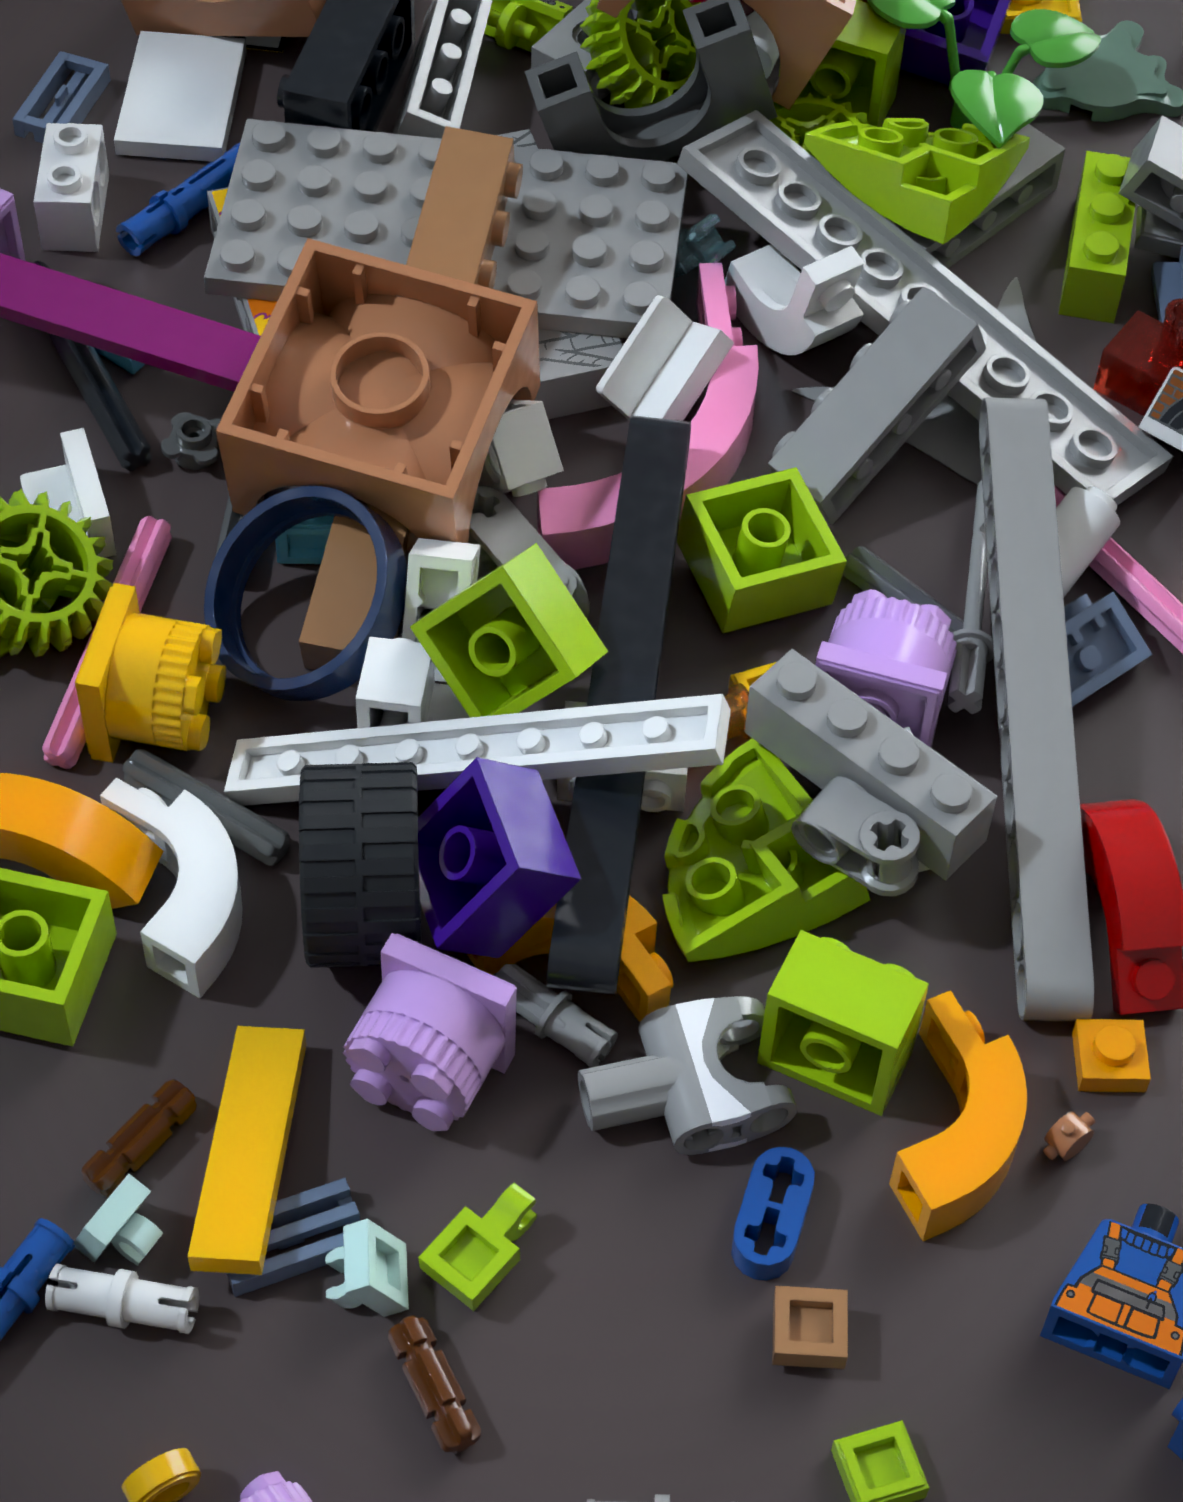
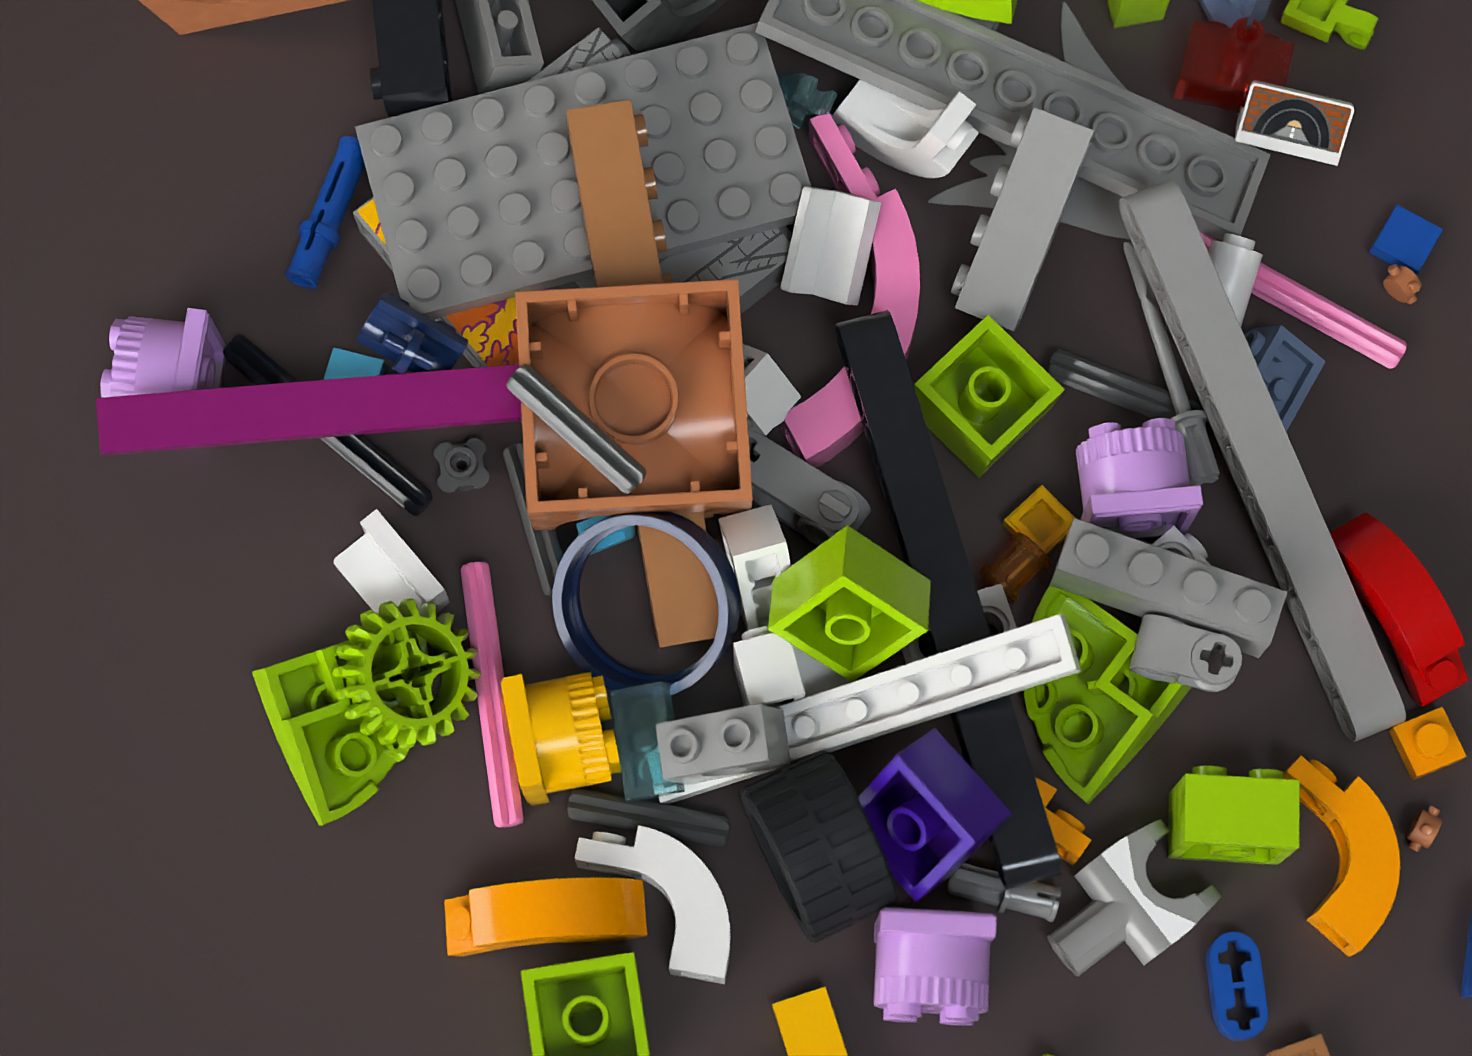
camera: 20 degrees left, 20 degrees up
(71, 101) = (156, 181): sand blue tile -> none
(71, 187) = (224, 246): white brick -> none
(180, 96) = (260, 95): white tile -> none
(195, 283) = (410, 337): none -> dark blue hips
(238, 720) = (635, 716): none -> clear light blue plate
(304, 370) = (576, 428): none -> dark grey axle
(307, 723) = (723, 744): none -> light grey brick

